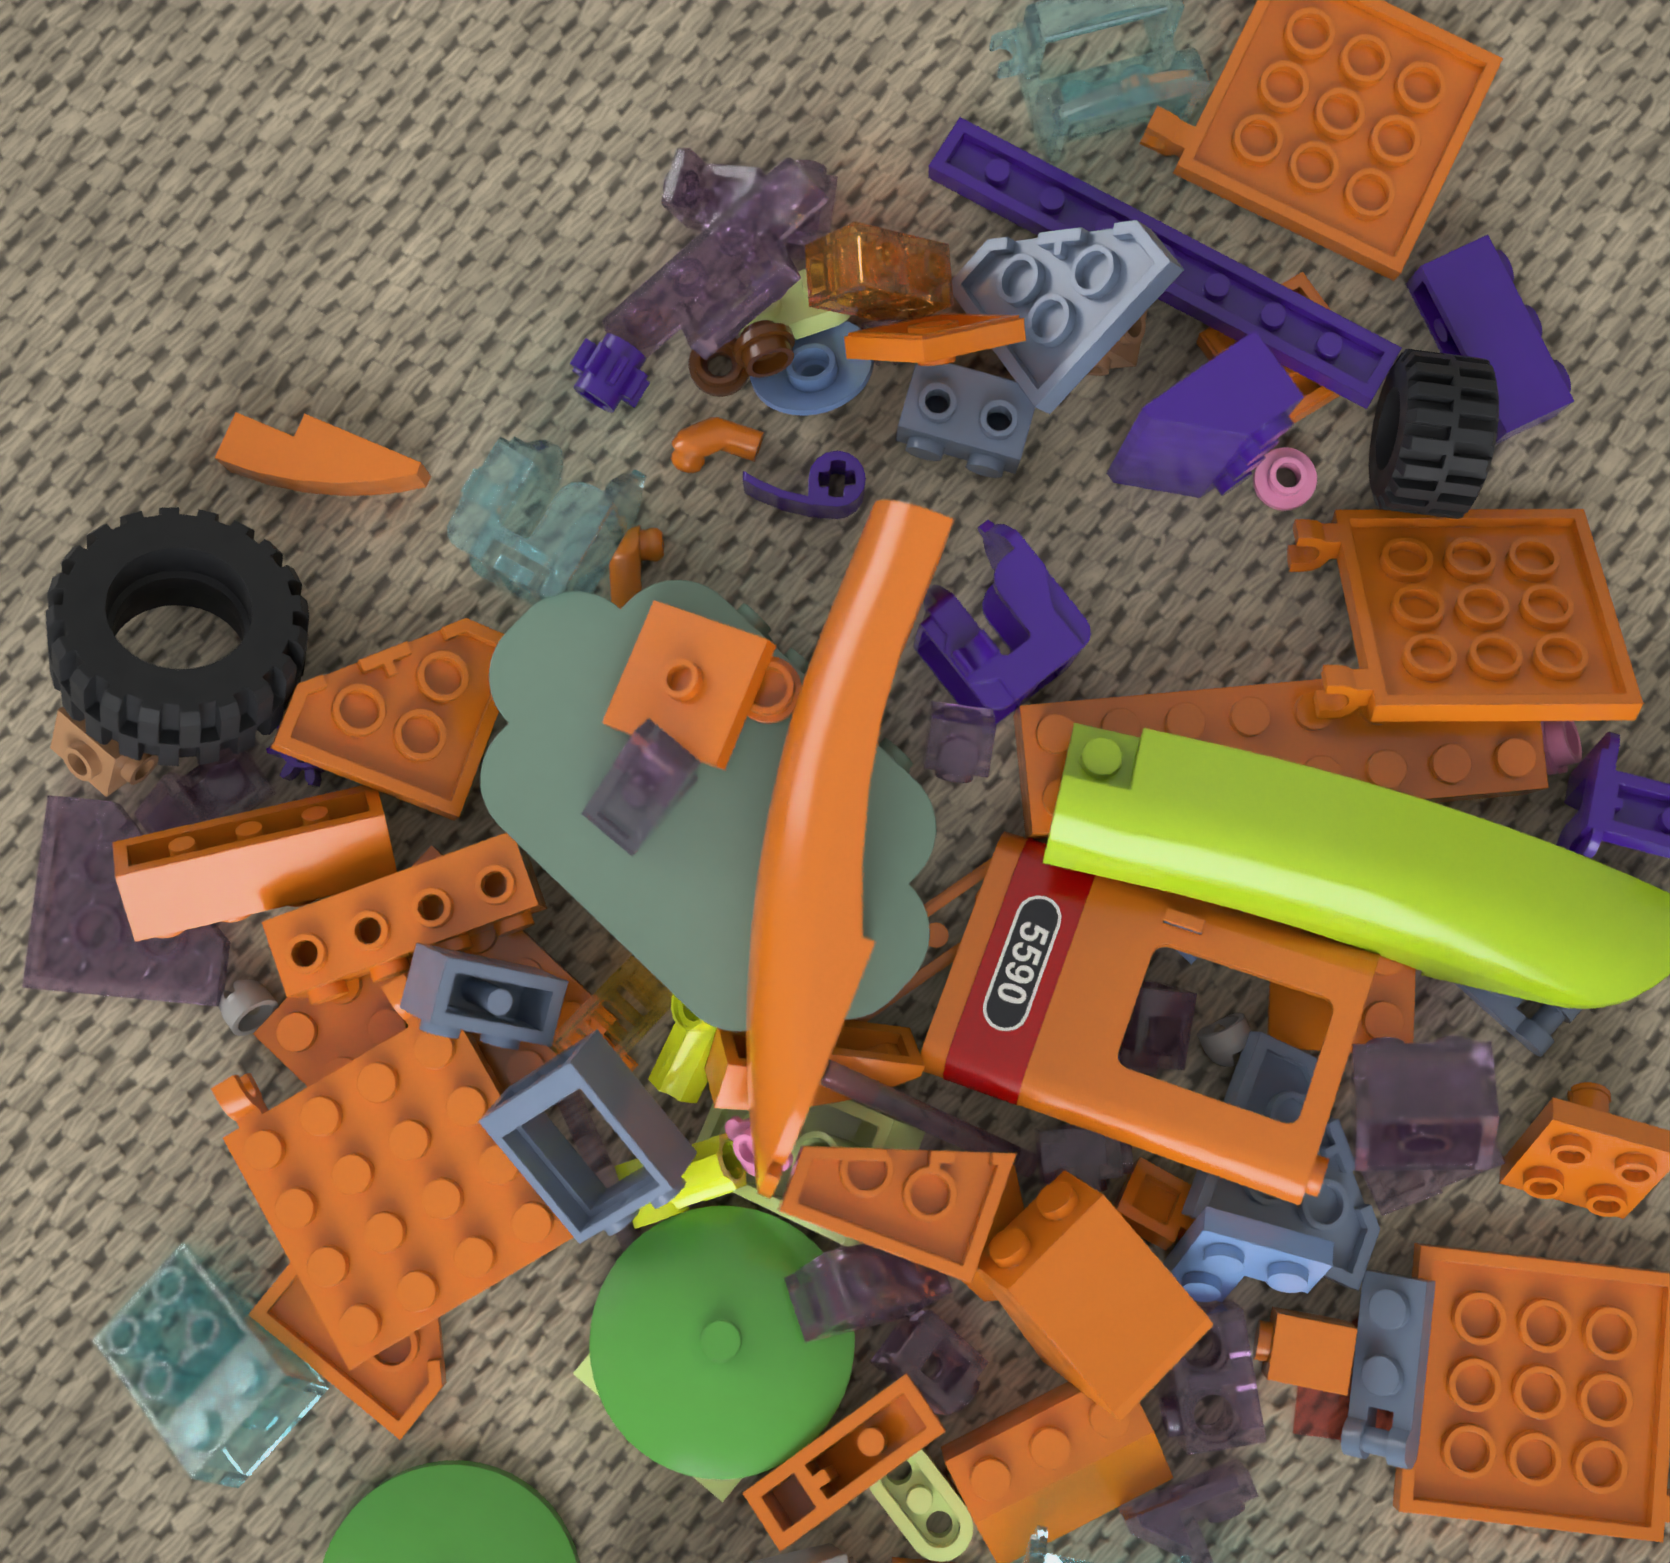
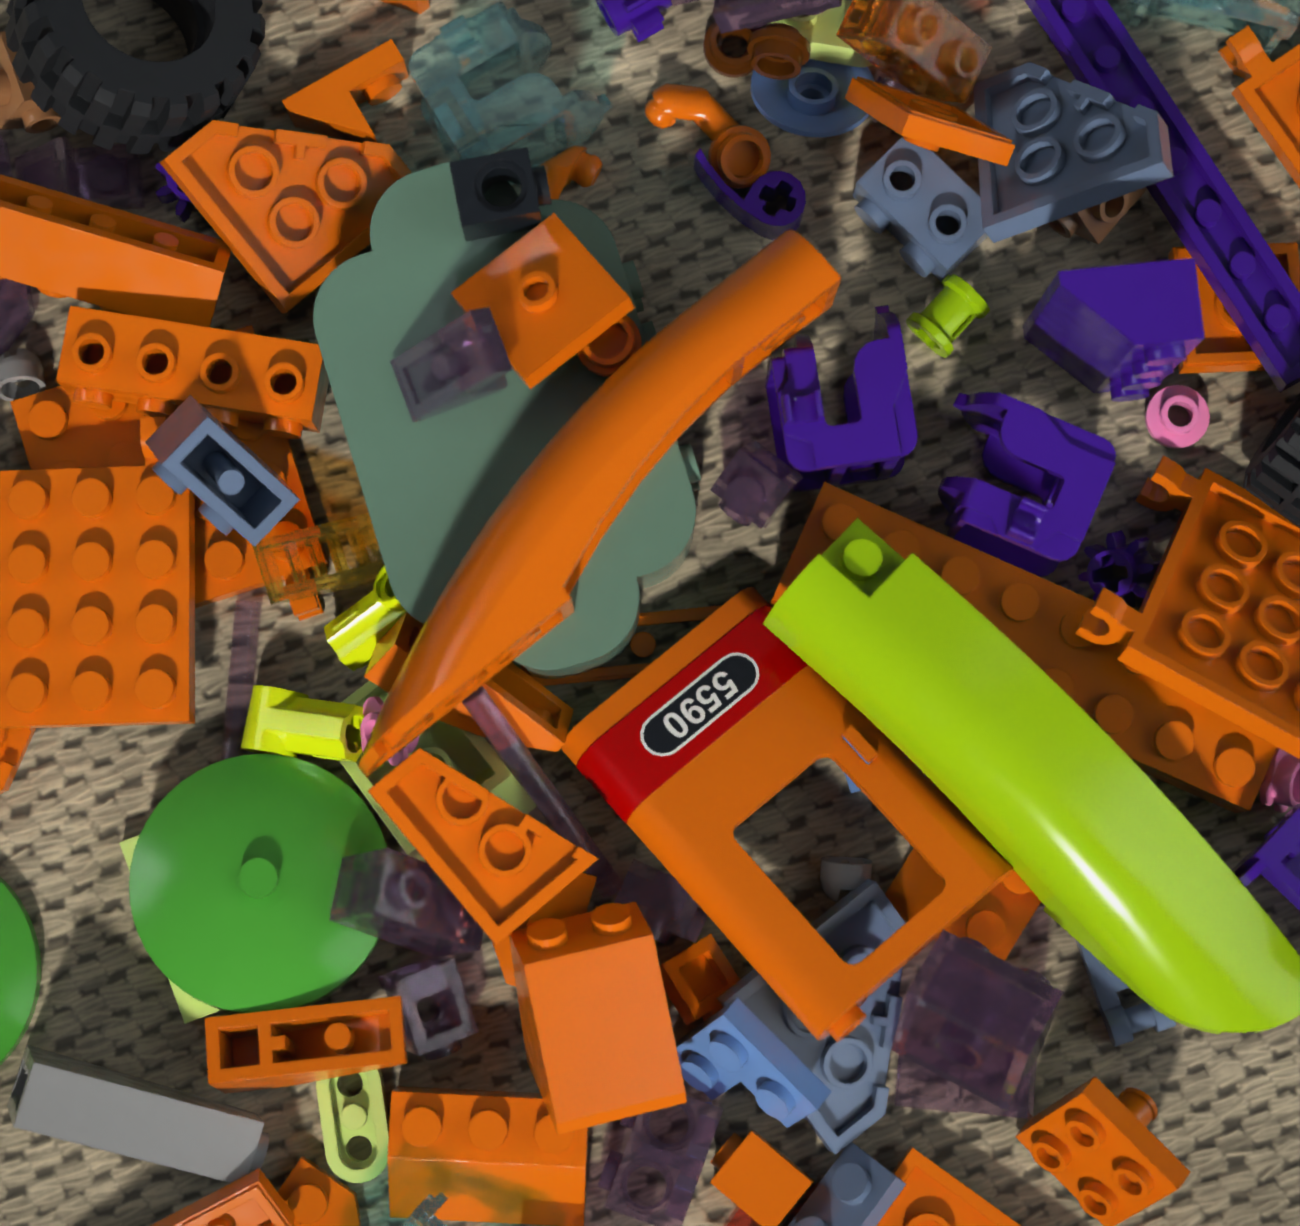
camera: 35 degrees right, 0 degrees up
(392, 608) = (333, 101): none -> orange slope
(556, 1168) = (202, 653): sand blue window -> none
(592, 640) = (474, 177): none -> black brick
(780, 458) = (740, 155): none -> orange plate
(1039, 499) = (948, 315): none -> lime bush
(1158, 1029) = (786, 829): brick -> none
(1218, 577) = (1040, 457): none -> dark purple animal
(1314, 623) = (1133, 556): none -> dark purple gear

